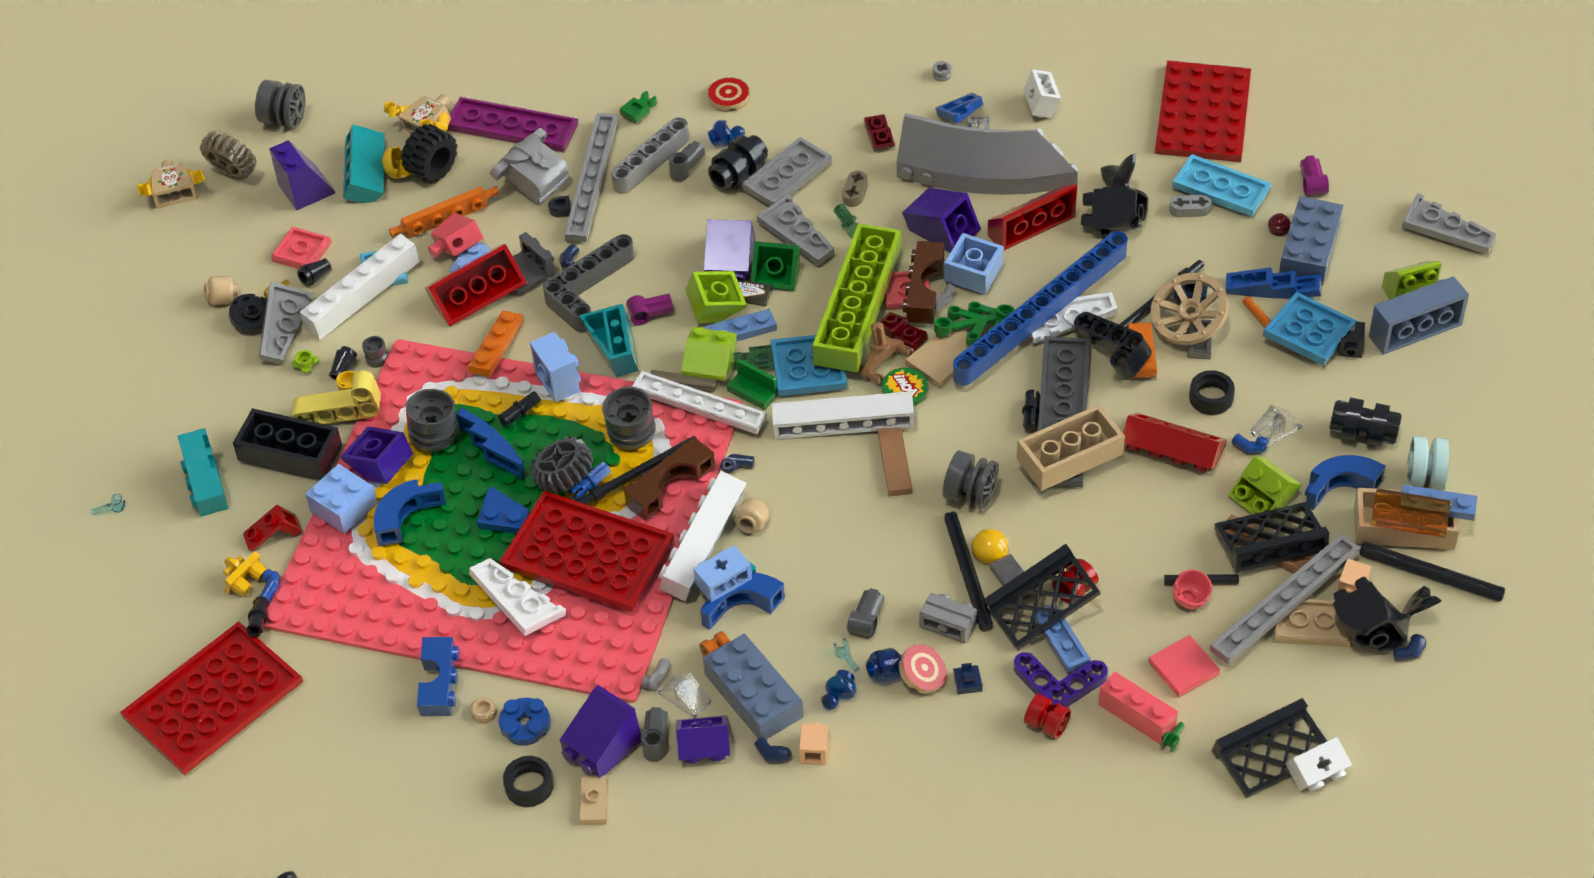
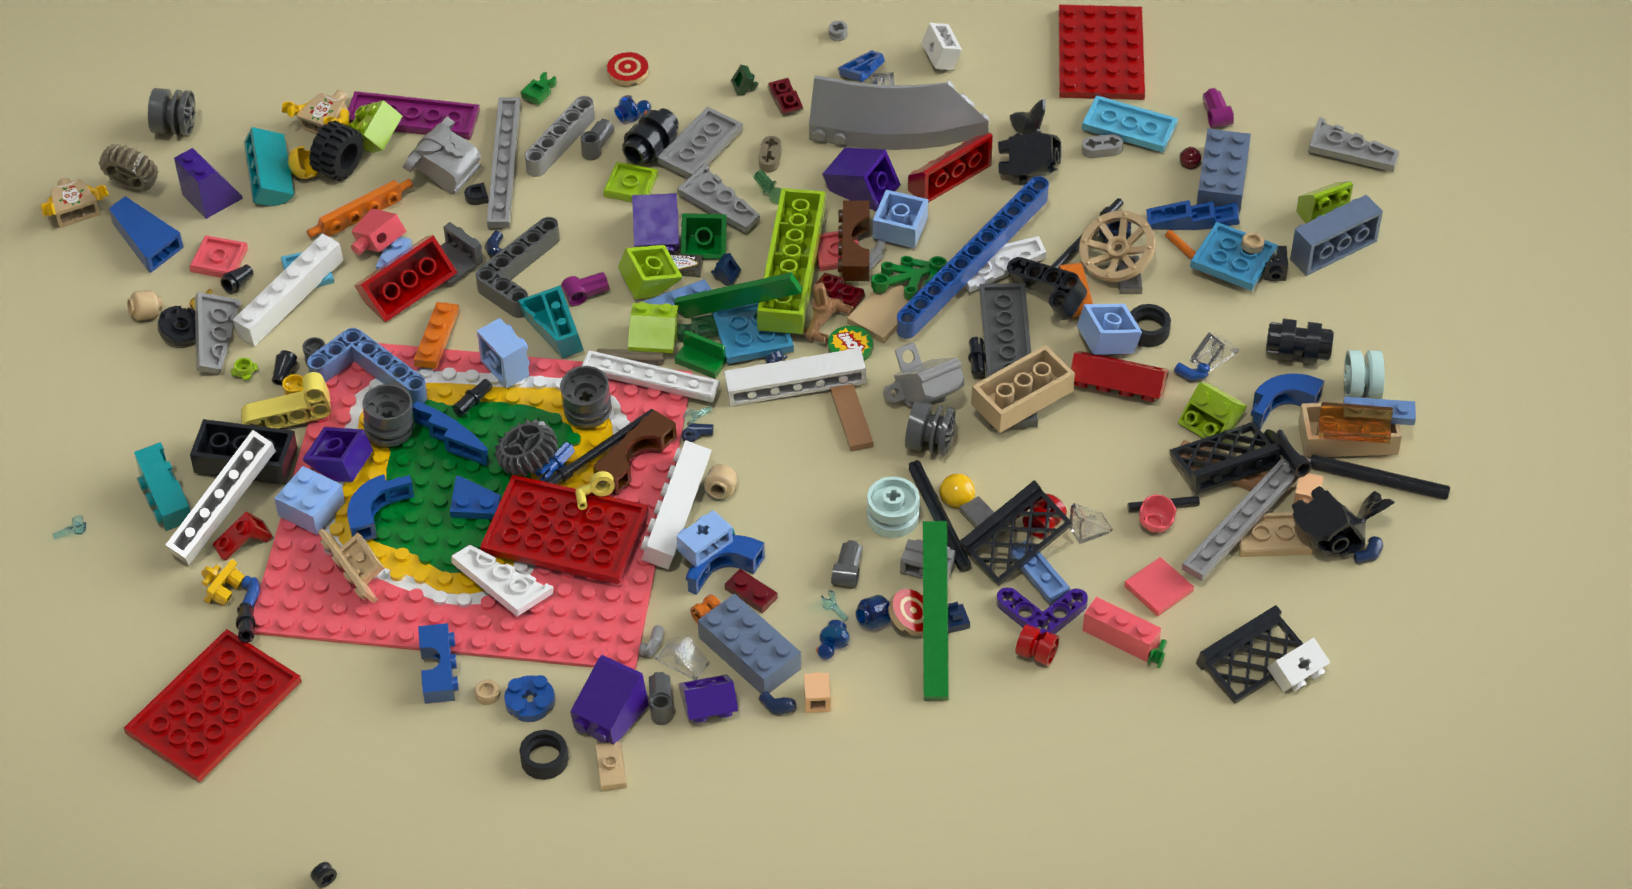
camera: 10 degrees left, 0 degrees up
(235, 220) = (145, 233): none -> blue slope
(253, 488) = (220, 497): none -> white brick
(376, 565) = (357, 560): none -> tan bracket
(416, 349) = (358, 347): none -> medium blue beam
(472, 131) = (376, 124): none -> lime slope
(625, 512) = (596, 487): none -> light yellow plate
(712, 204) = (629, 180): none -> lime tile
(738, 445) = (697, 414): none -> clear light blue hand
(765, 631) = (751, 591): none -> dark red plate
(792, 301) = (726, 269): none -> dark blue tile
(796, 328) = (738, 295): none -> green tile
(826, 393) = (775, 357): none -> dark blue plate
(840, 113) = (743, 80): none -> dark green tile
(921, 558) = (893, 507): none -> light aqua wheel
(947, 670) = (935, 611): none -> green tile
(971, 430) = (925, 380): none -> light grey piece
(1119, 593) = (1087, 523): none -> clear slope
(1169, 393) = (1109, 329): none -> light blue brick
(1330, 316) = (1252, 243): none -> tan tile
(1344, 549) = (1298, 463): none -> black plant

